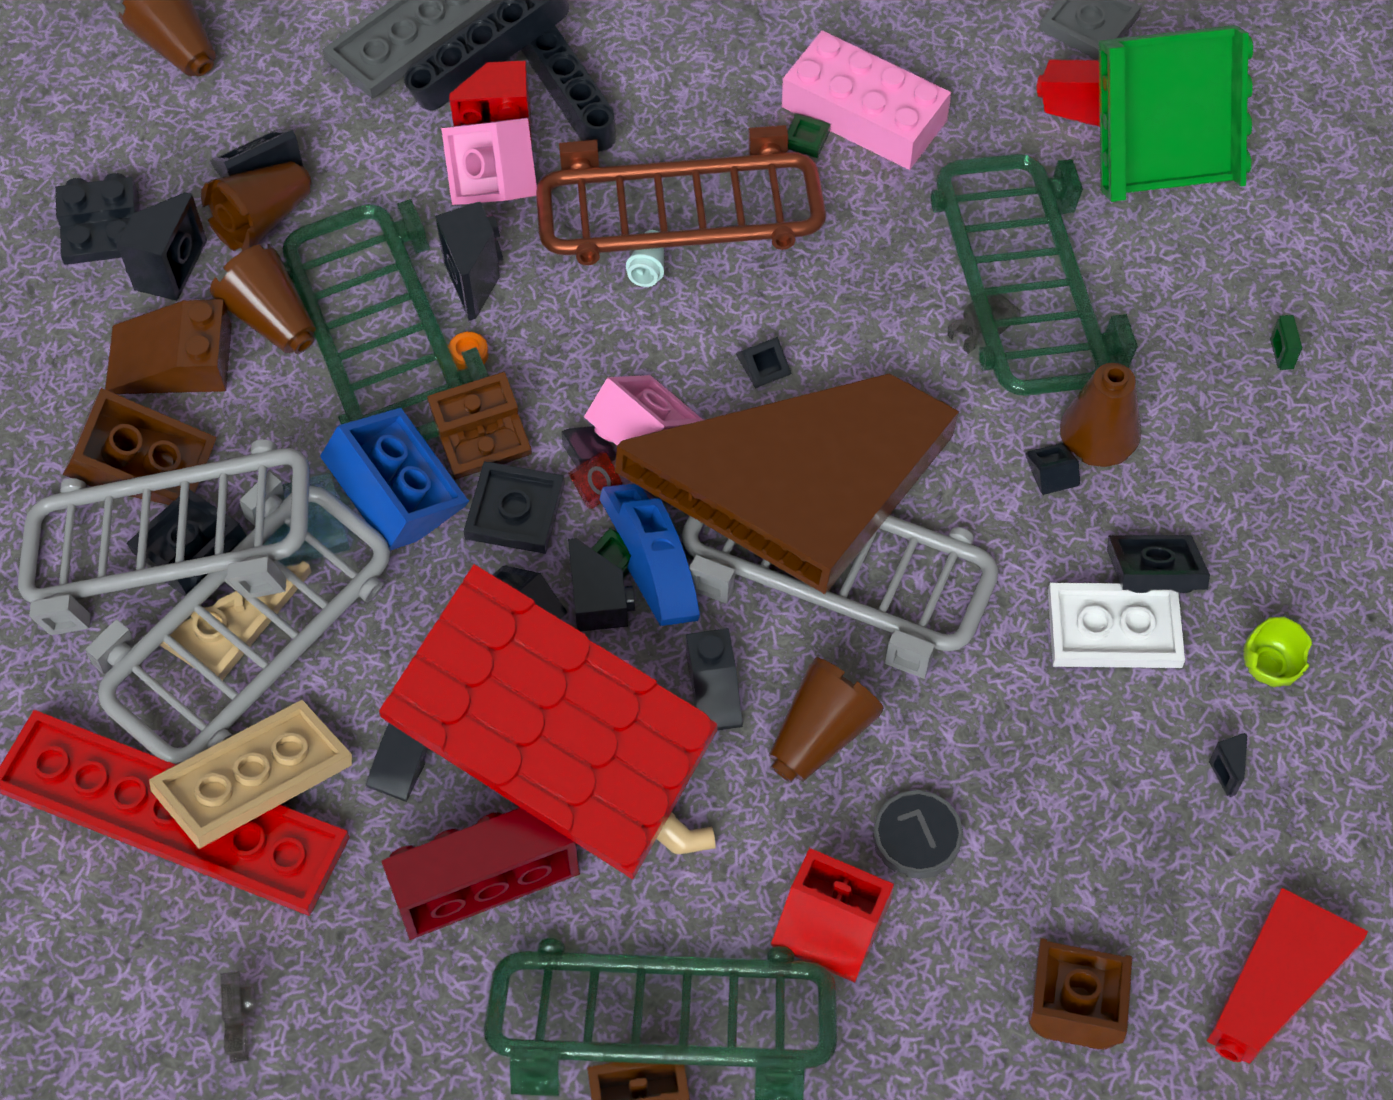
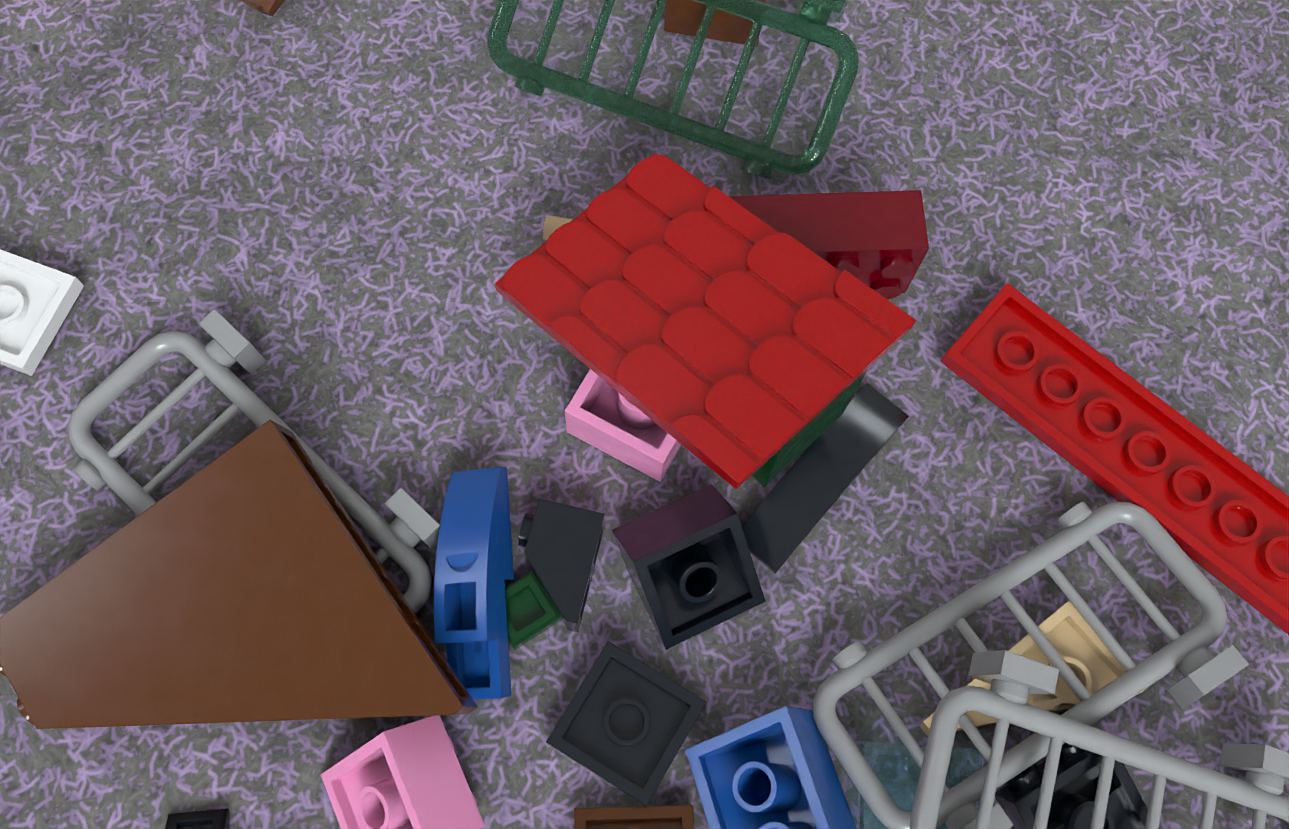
camera: 165 degrees left, 10 degrees up
(237, 1003) = (1098, 214): clear smoke plate -> none
(250, 773) = (1049, 446): tan plate -> none
(584, 444) = (497, 785): black slope -> none
(593, 476) = (504, 724): clear red tile -> none
(714, 677) = (469, 394): black slope -> none
(821, 721) = (371, 289): reddish brown cone -> none
(833, 914) = (455, 97): red slope -> none
(917, 834) = (331, 160): black tile -> none

